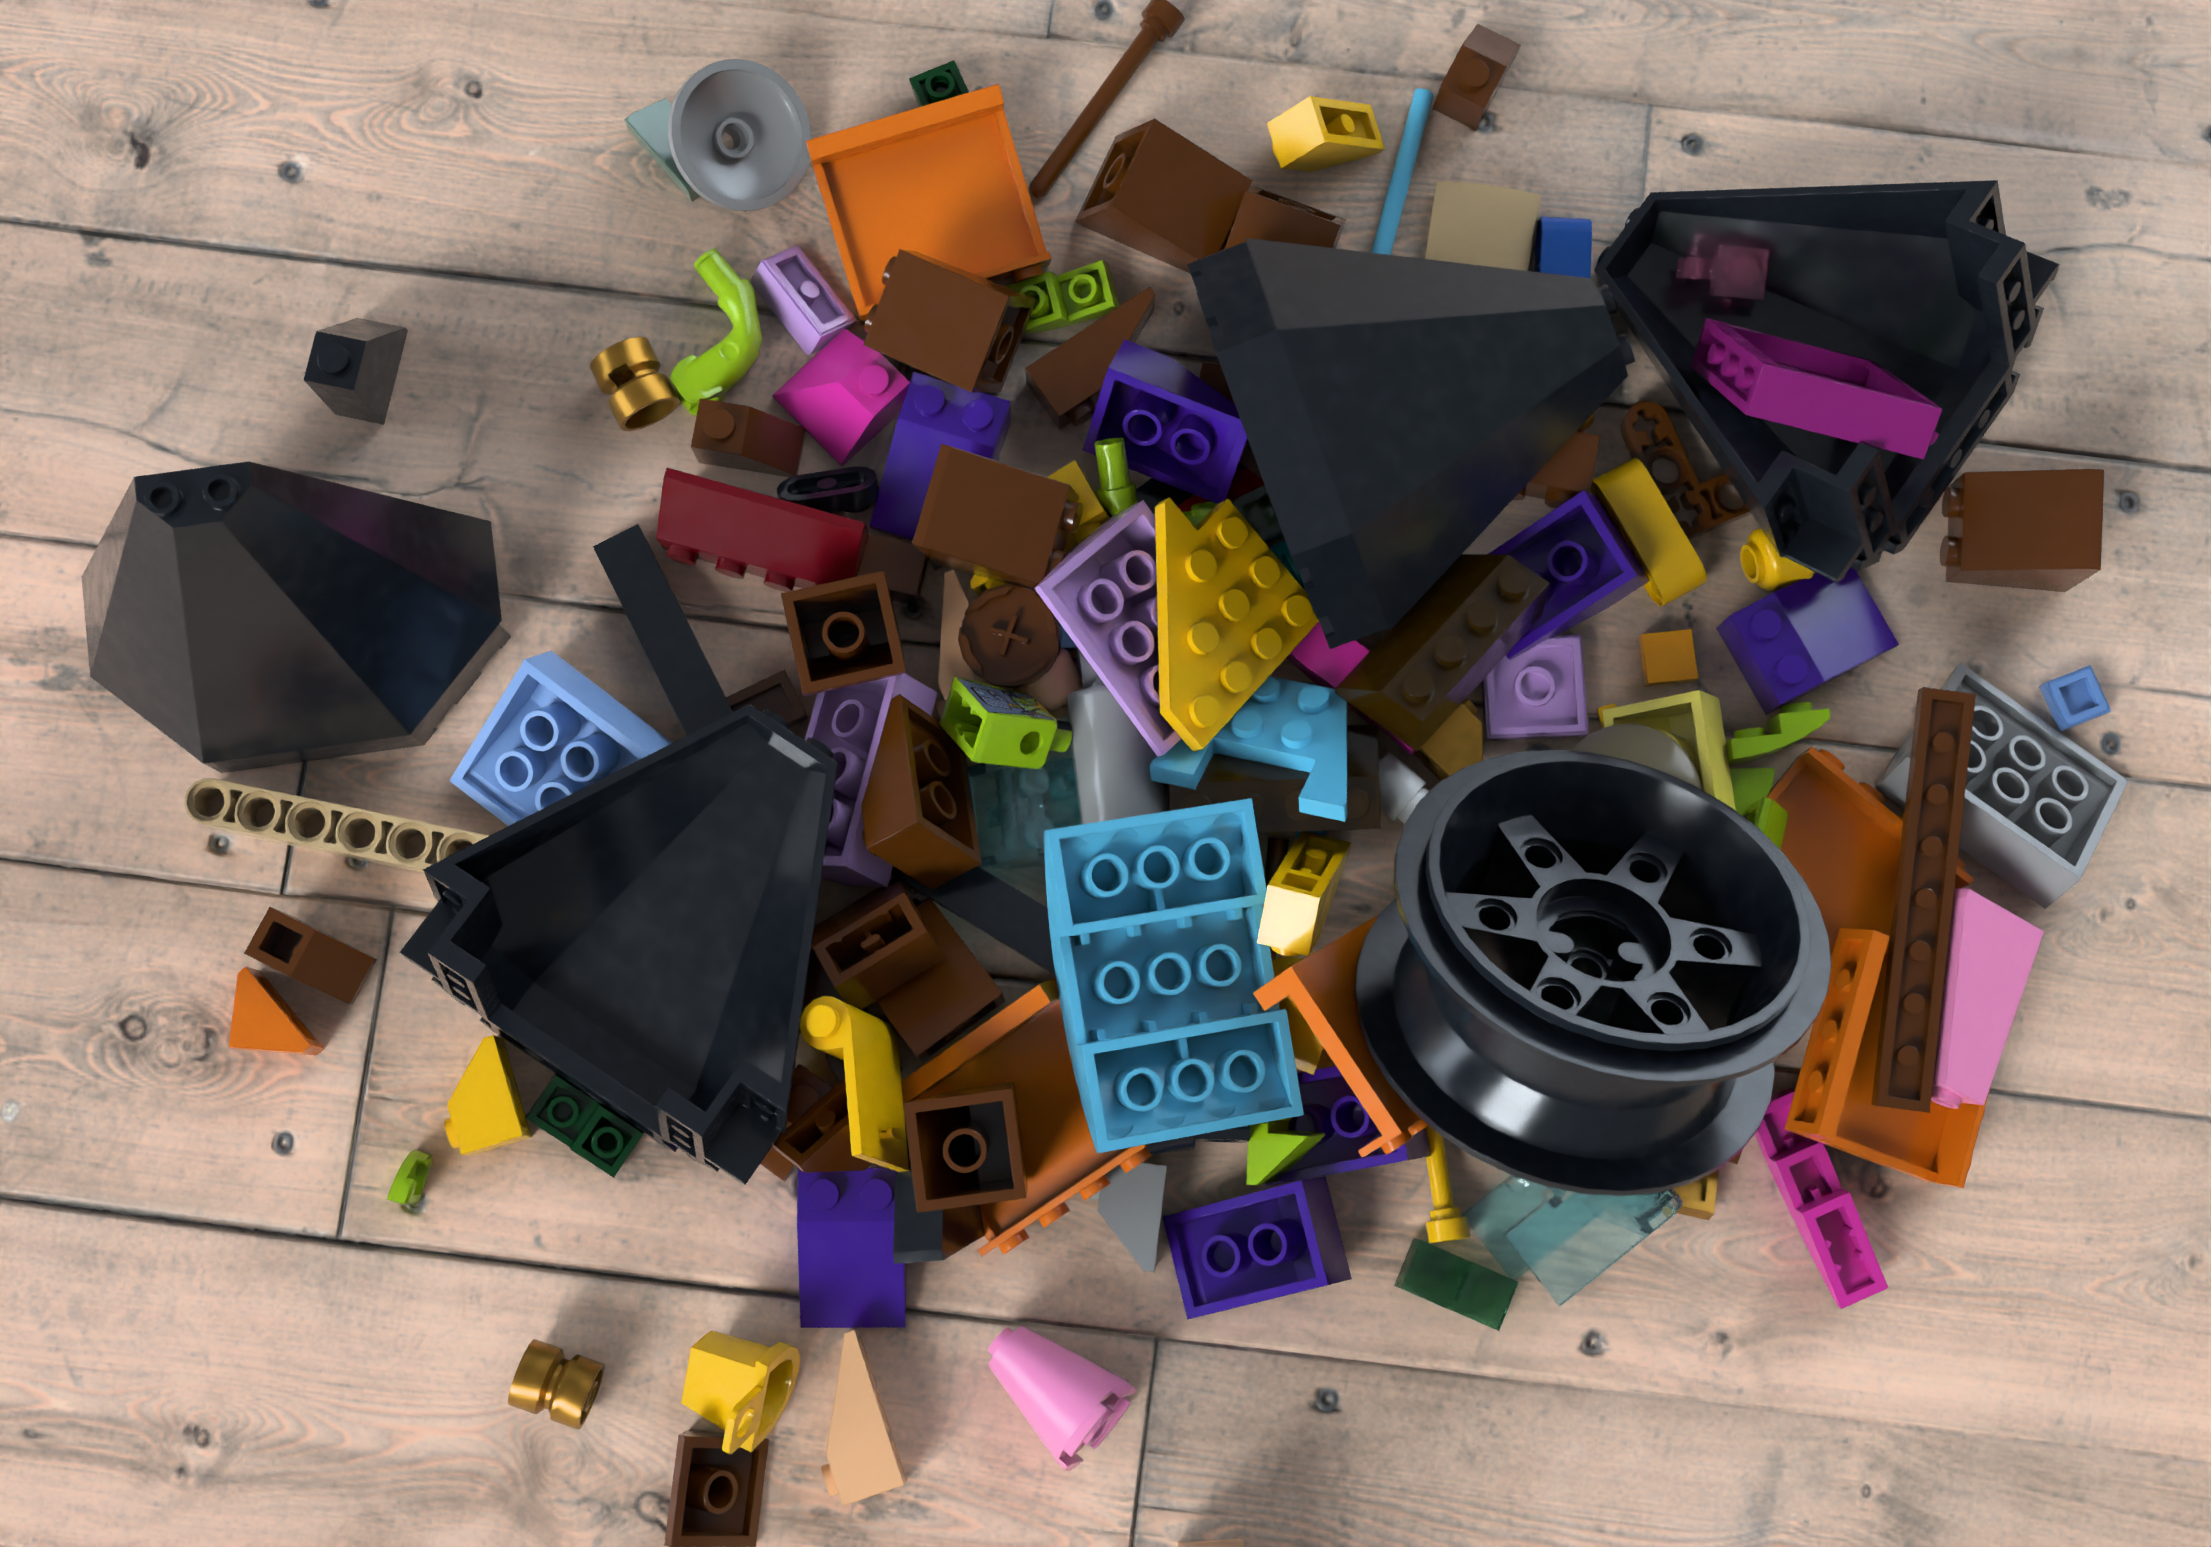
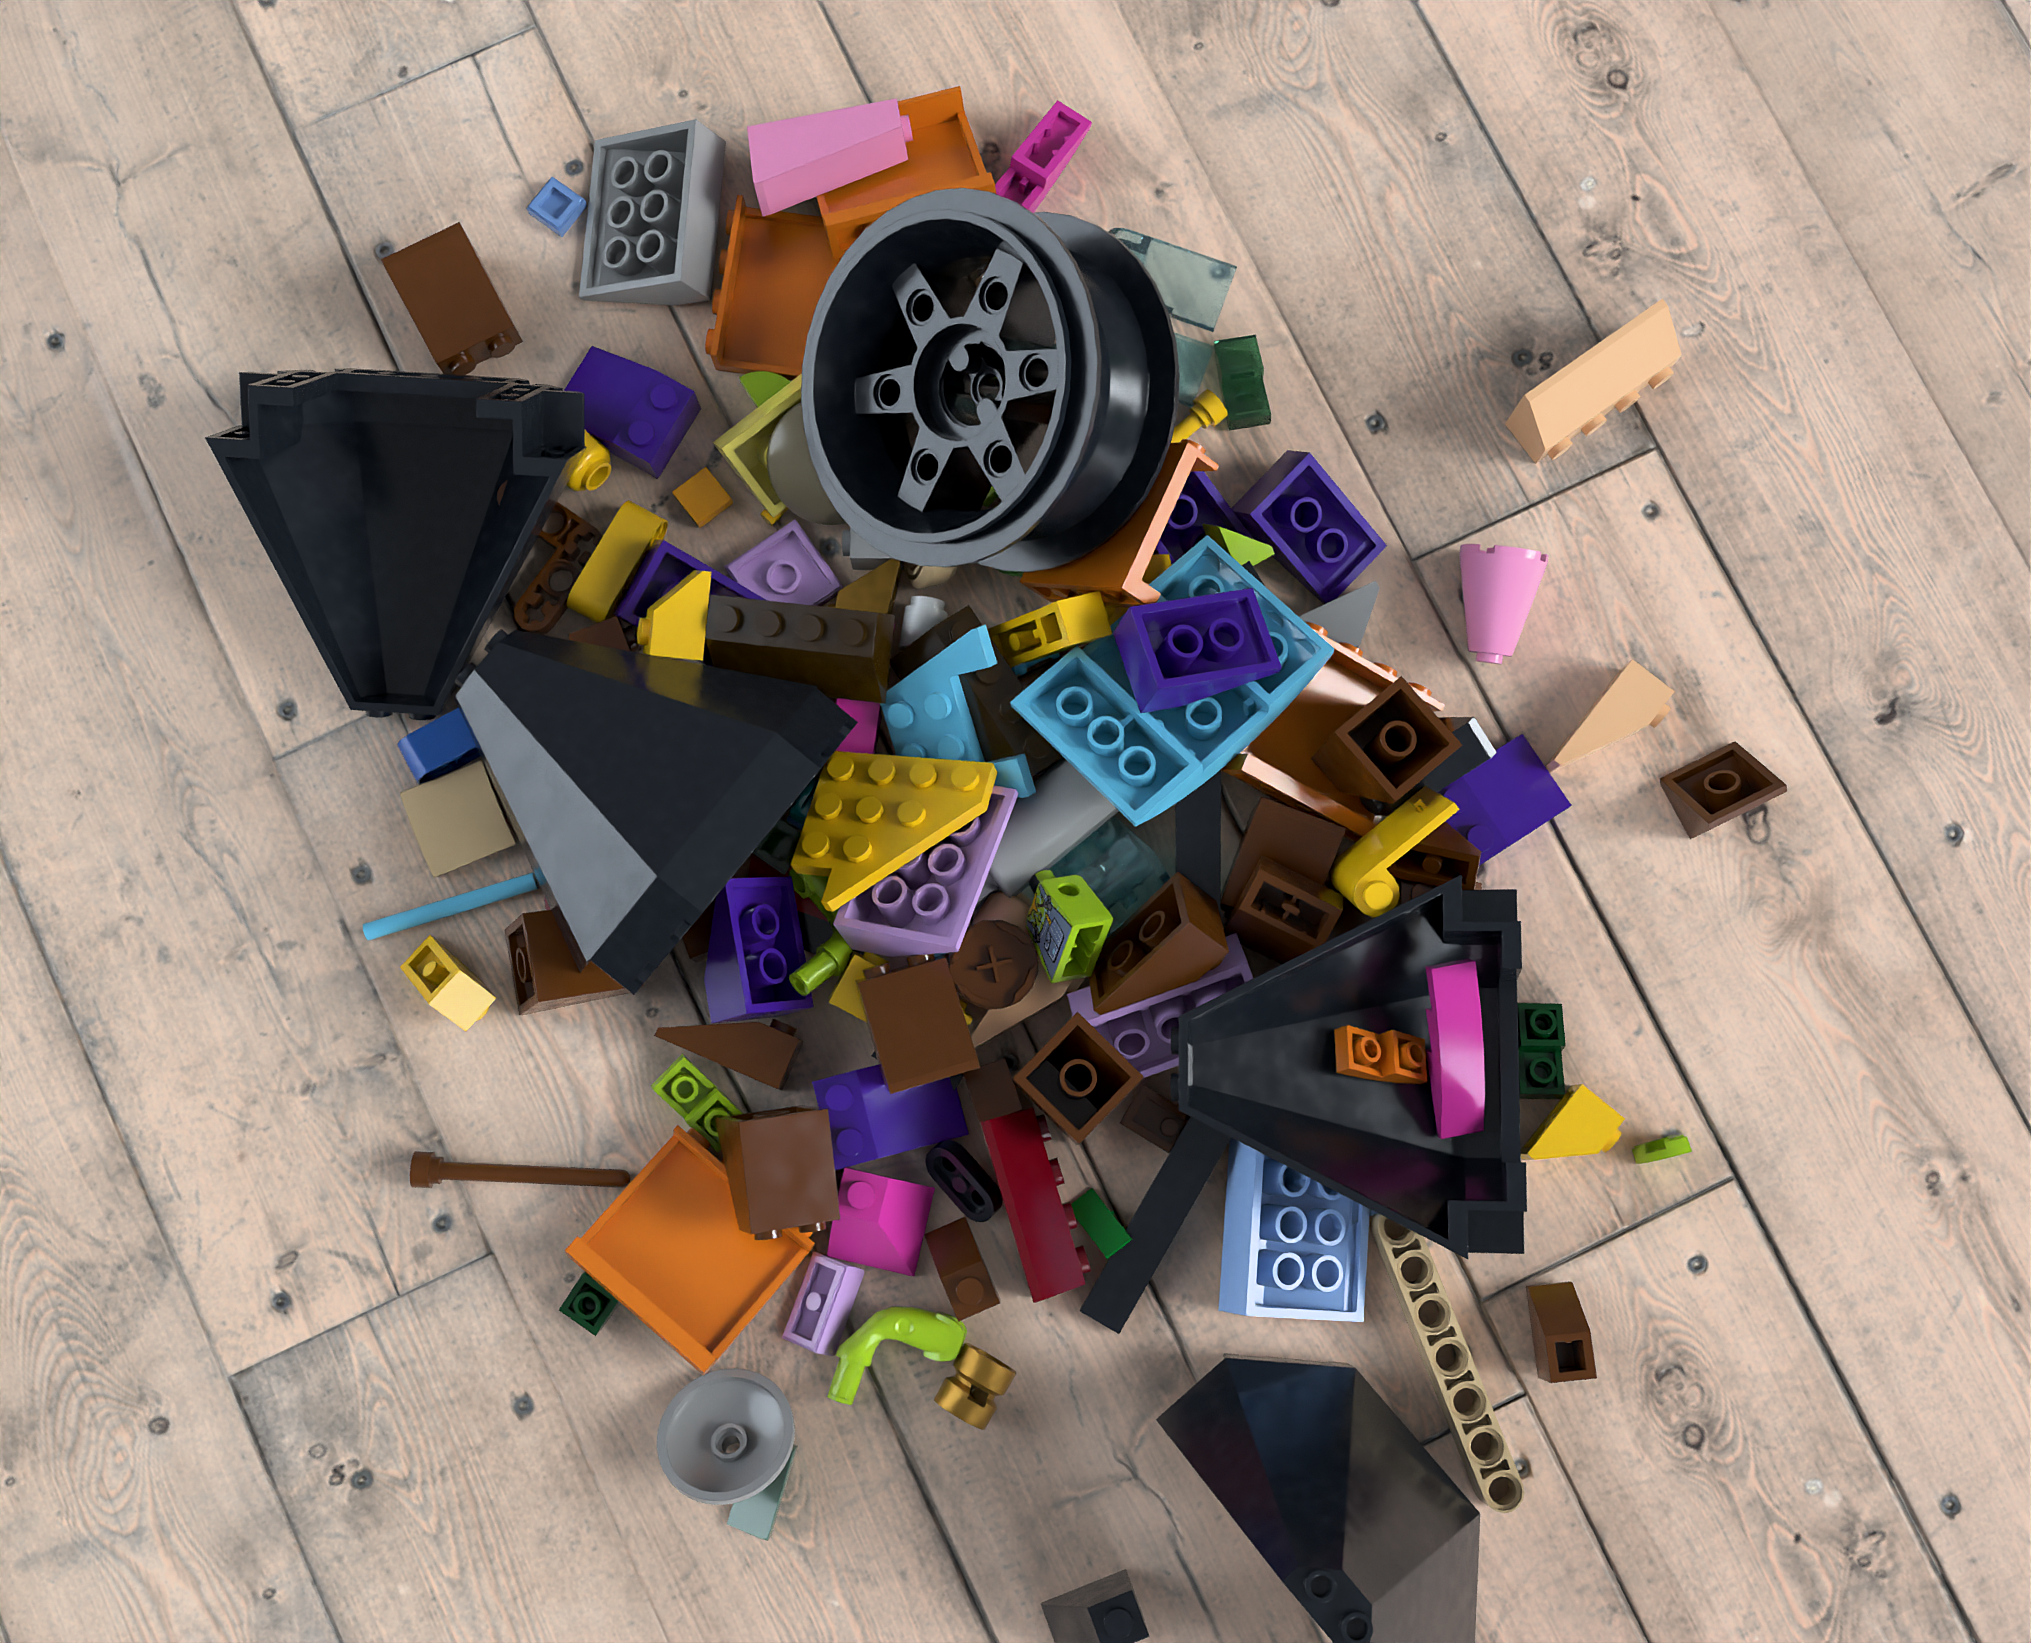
camera: 120 degrees left, 0 degrees up
(265, 1019) = (1625, 1332): orange slope -> none
(556, 1384) = (1728, 945): pearl gold wheel -> none
(637, 1028) = (1456, 1048): none -> dark pink slope
(679, 953) = (1380, 1057): none -> orange slope
(704, 592) = (1100, 1223): none -> green window
(740, 1386) = (1644, 816): yellow container -> none
(1163, 196) = (574, 1073): reddish brown slope -> none
(1186, 1011) = (1194, 648): none -> dark purple slope
(1475, 76) = (328, 898): reddish brown slope -> none
(1544, 540) = (678, 620): none -> yellow slope
(1732, 273) = (380, 616): clear pink plate -> none
(1769, 818) = (787, 357): lime slope -> none
(1784, 730) = (713, 385): lime slope -> none
(1815, 389) = (453, 550): magenta window -> none
(1923, 899) = (776, 211): reddish brown plate -> none

